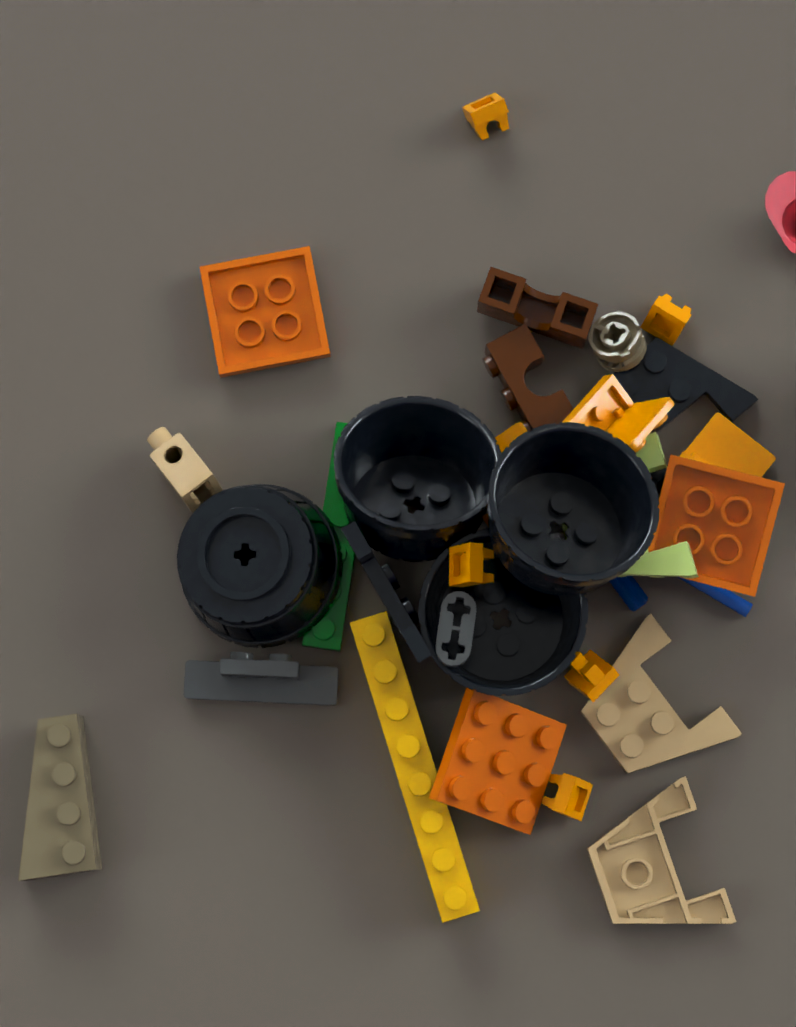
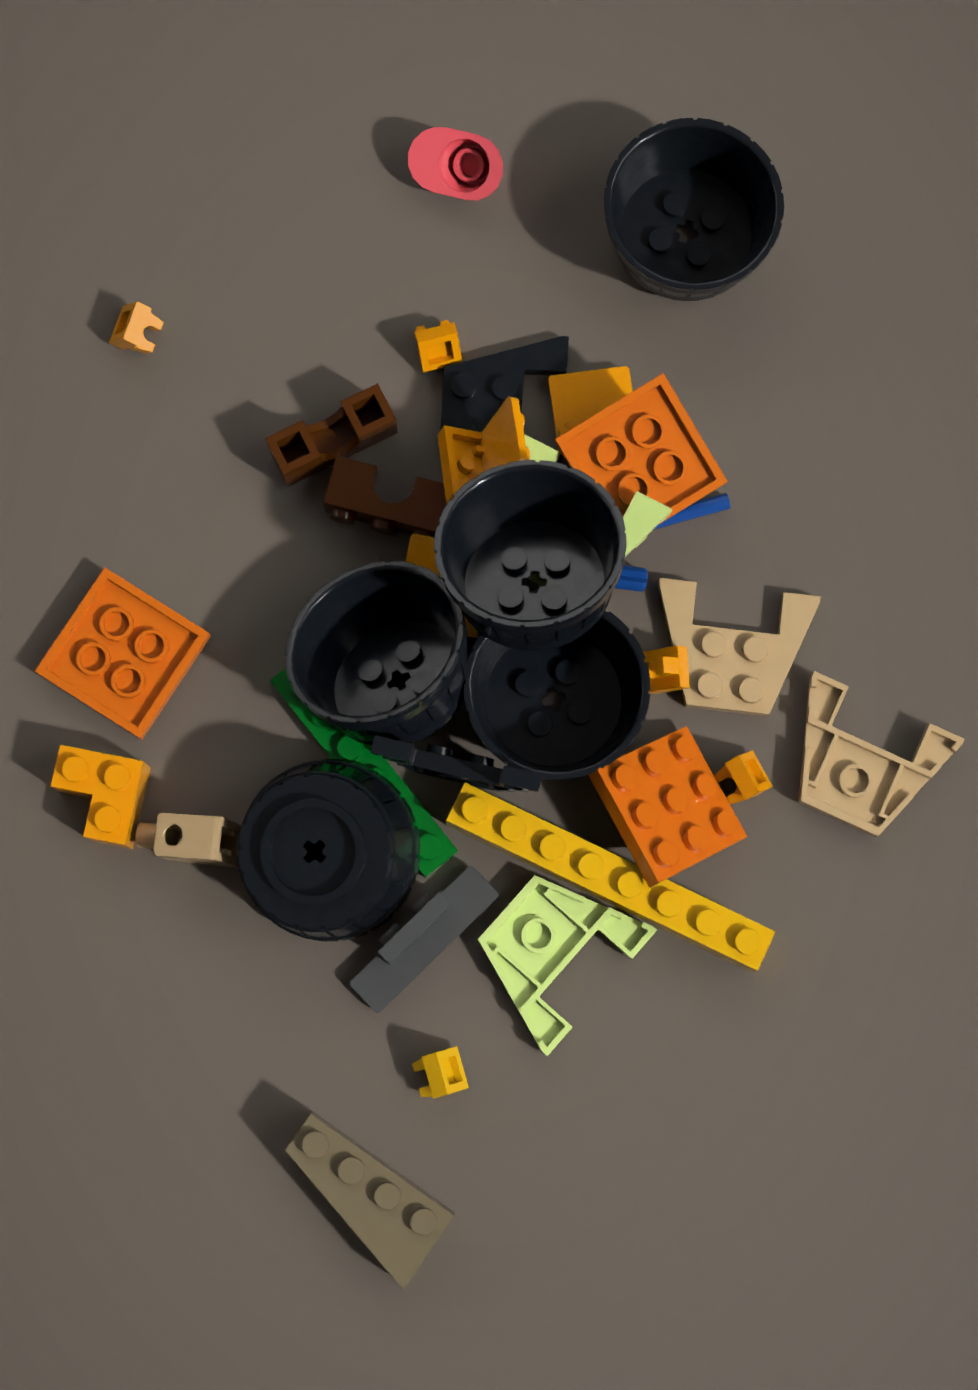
camera: 55 degrees left, 0 degrees up
(172, 388) = (115, 788): none -> light orange brick
(184, 776) = (443, 1072): none -> yellow tile
(332, 757) = (540, 937): none -> yellowish green wing
(446, 627) = (545, 730): dark grey beam -> none
(467, 565) = (495, 679): light orange tile -> none
(628, 347) = (431, 394): dark tan wheel -> none

